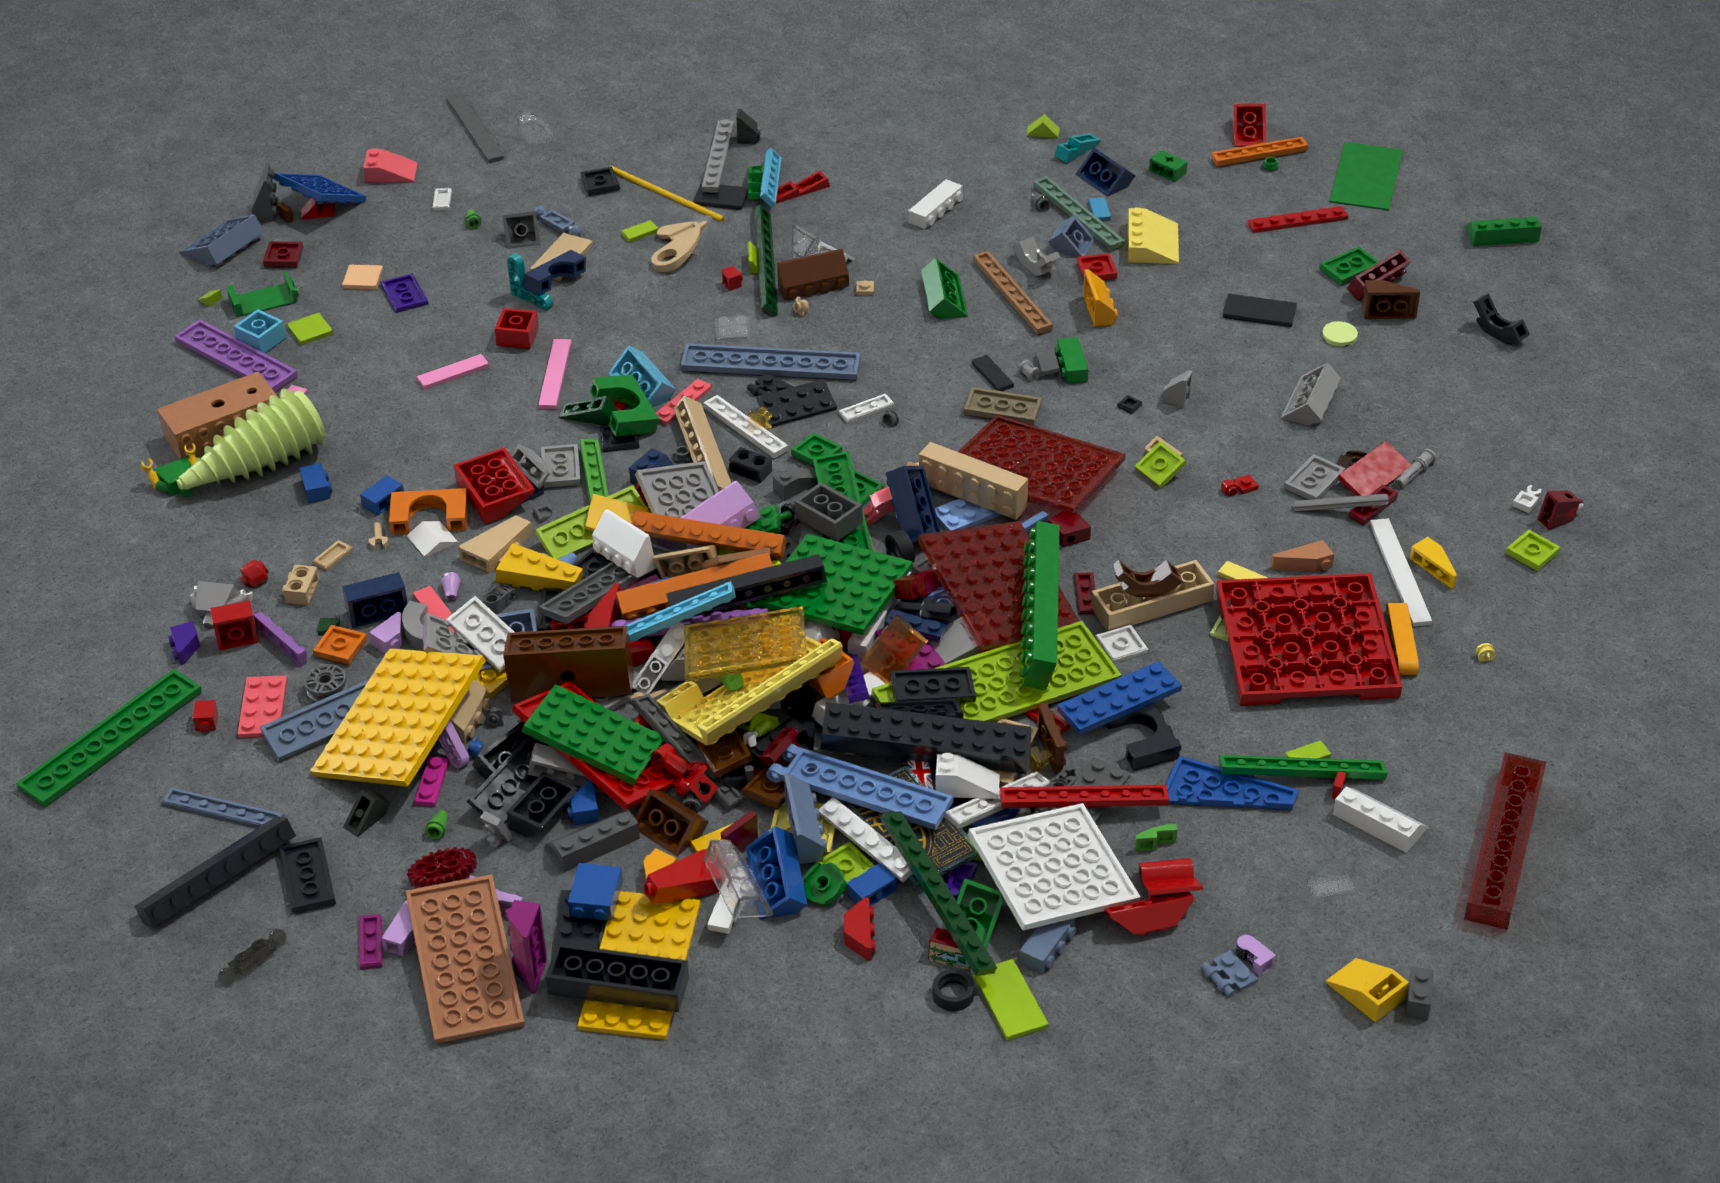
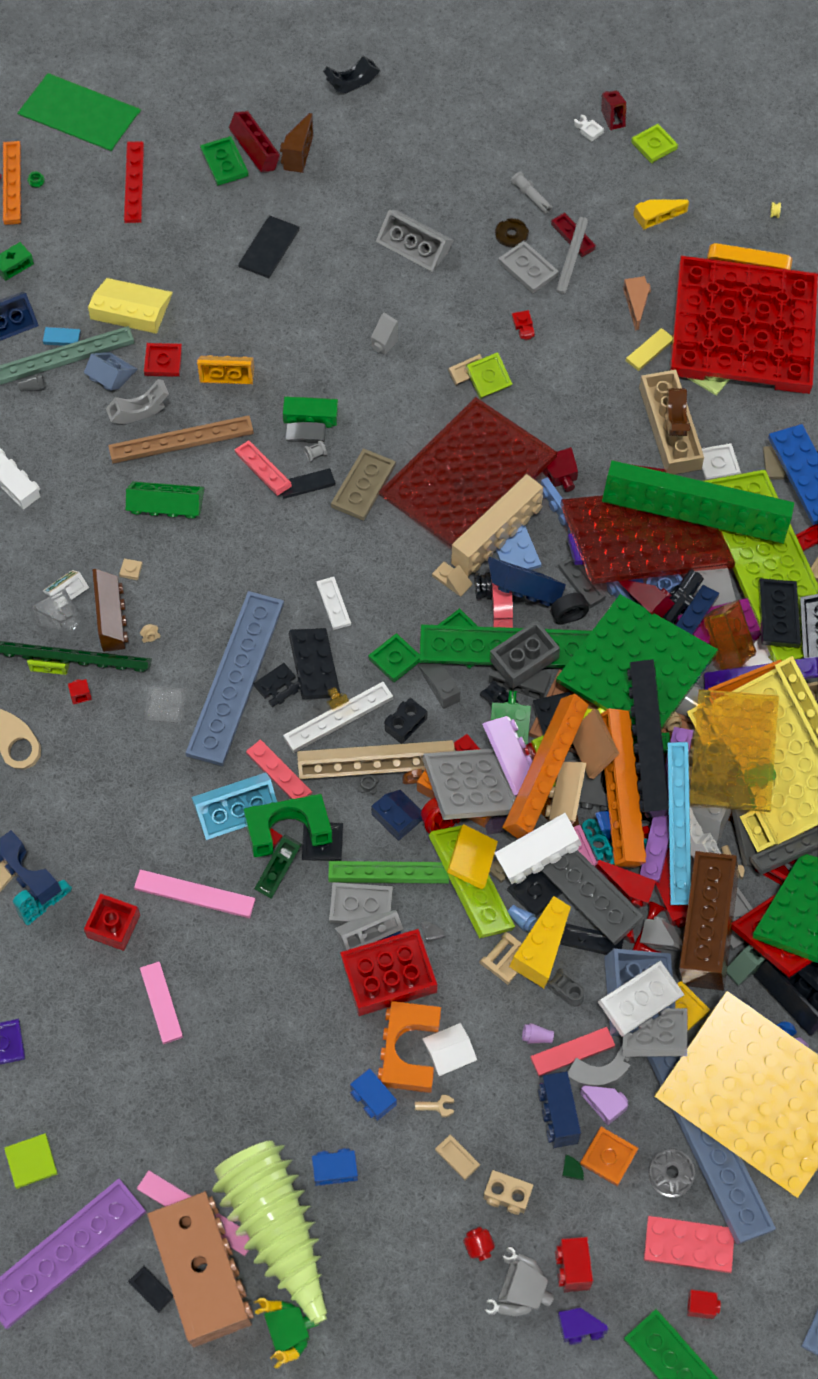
camera: 80 degrees left, 20 degrees up
(260, 330) = (33, 1217): medium azure brick -> none
(280, 639) = (599, 1213): medium lavender plate -> none
(491, 545) = (483, 983): tan slope -> none
(890, 416) = (358, 581): dark grey plate -> none
(998, 343) = (263, 468): none -> coral tile
(1129, 404) = (384, 381): black tile -> none
(1340, 334) = (323, 196): yellowish green tile -> none
(1373, 470) = (531, 221): tile -> none
(1400, 572) = (657, 239): white tile -> none
(1504, 231) = (206, 34): green slope -> none

